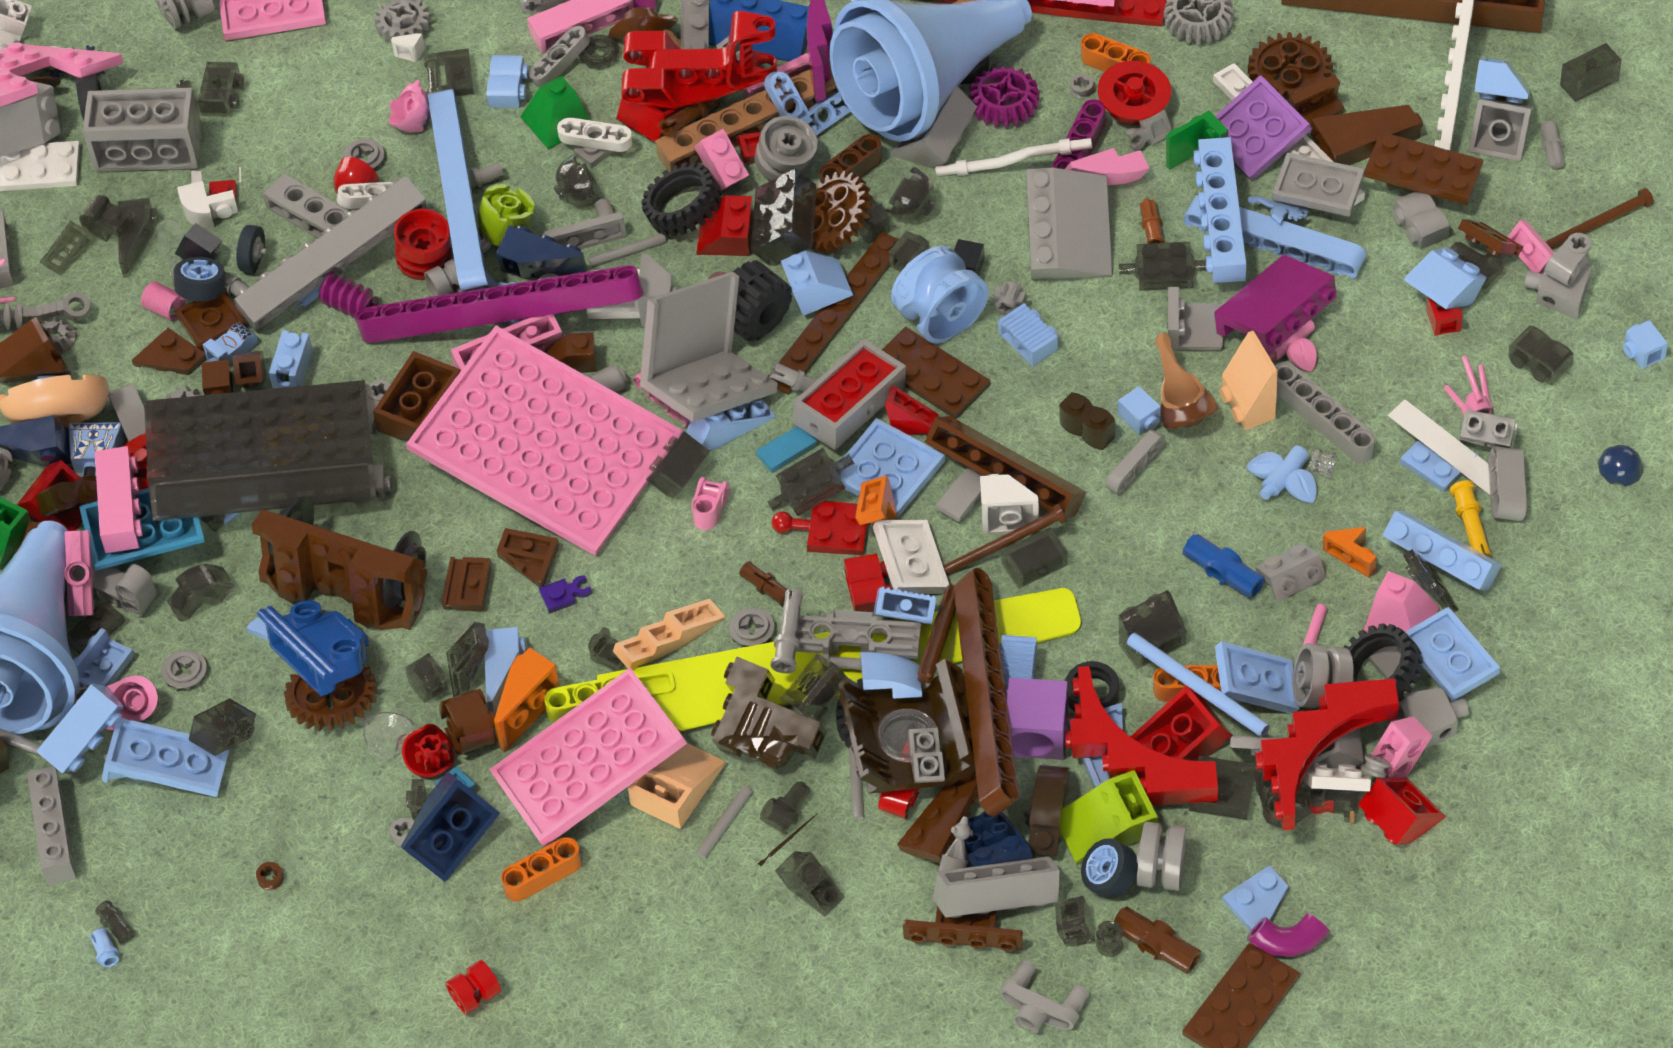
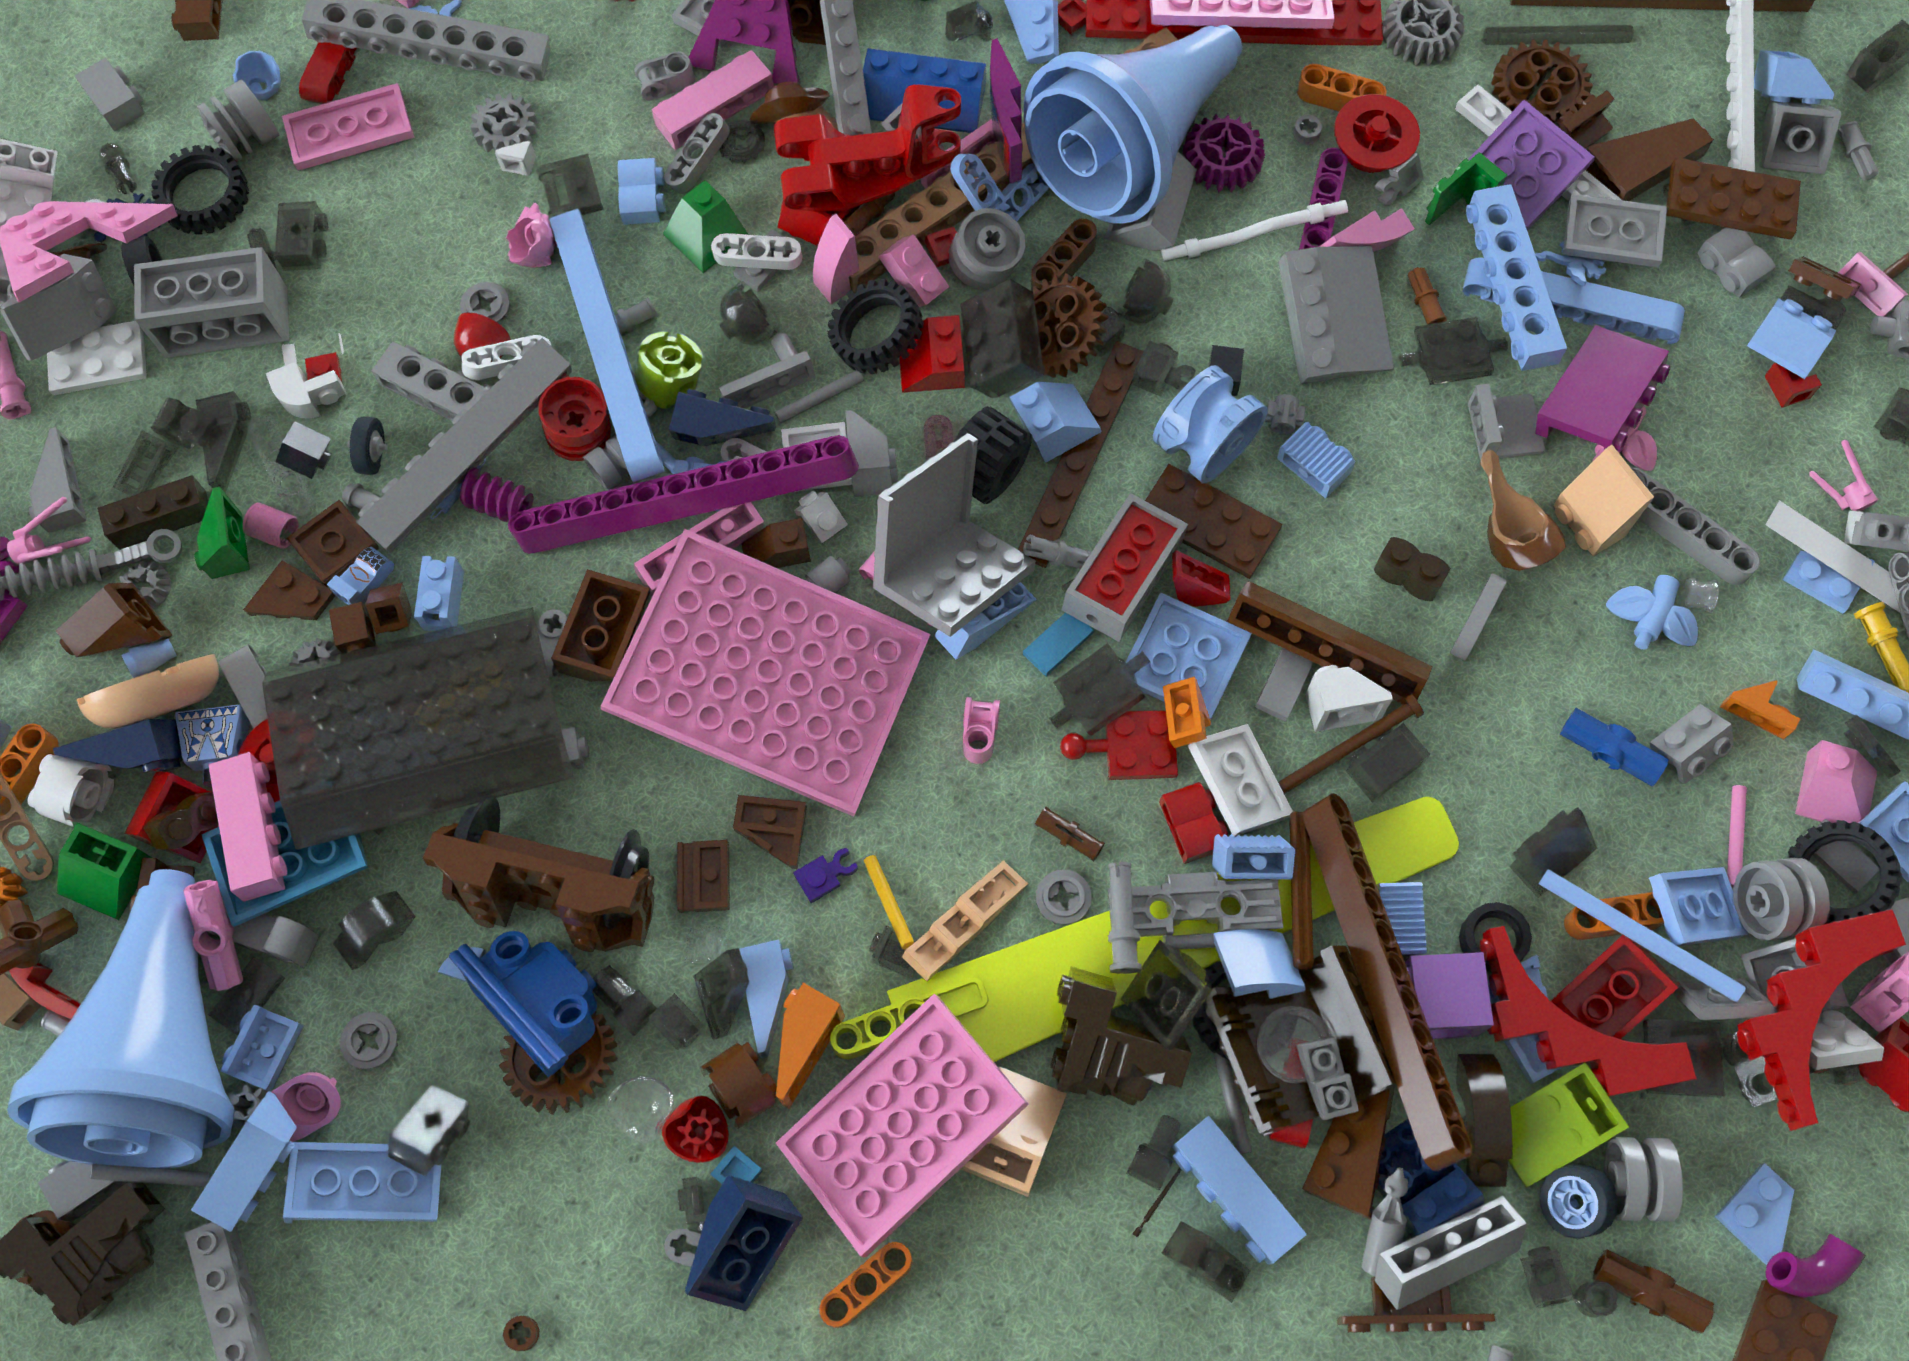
camera: 10 degrees left, 15 degrees up
(77, 24) = (117, 166): none -> clear smoke pin
(87, 276) = (163, 507): none -> dark brown brick
(122, 305) = (221, 538): none -> green slope
(149, 67) = (193, 161): none -> black tyre
(199, 278) = (309, 495): black wheel -> none
(387, 661) = (629, 1006): none -> clear smoke piece
(610, 613) = (889, 901): none -> yellow bar
(611, 336) = (820, 515): none -> white bracket
(656, 144) = (835, 260): none -> bright pink slope
(677, 465) = (934, 684): clear smoke brick -> none
(724, 821) = (1080, 1180): light grey bar -> none
(844, 837) = (1238, 1191): none -> light blue brick
(1139, 411) = (1469, 548): light blue brick -> none
(1317, 31) = (1563, 34): none -> clear smoke axle
(1375, 766) = (1877, 1020): light grey bush -> none

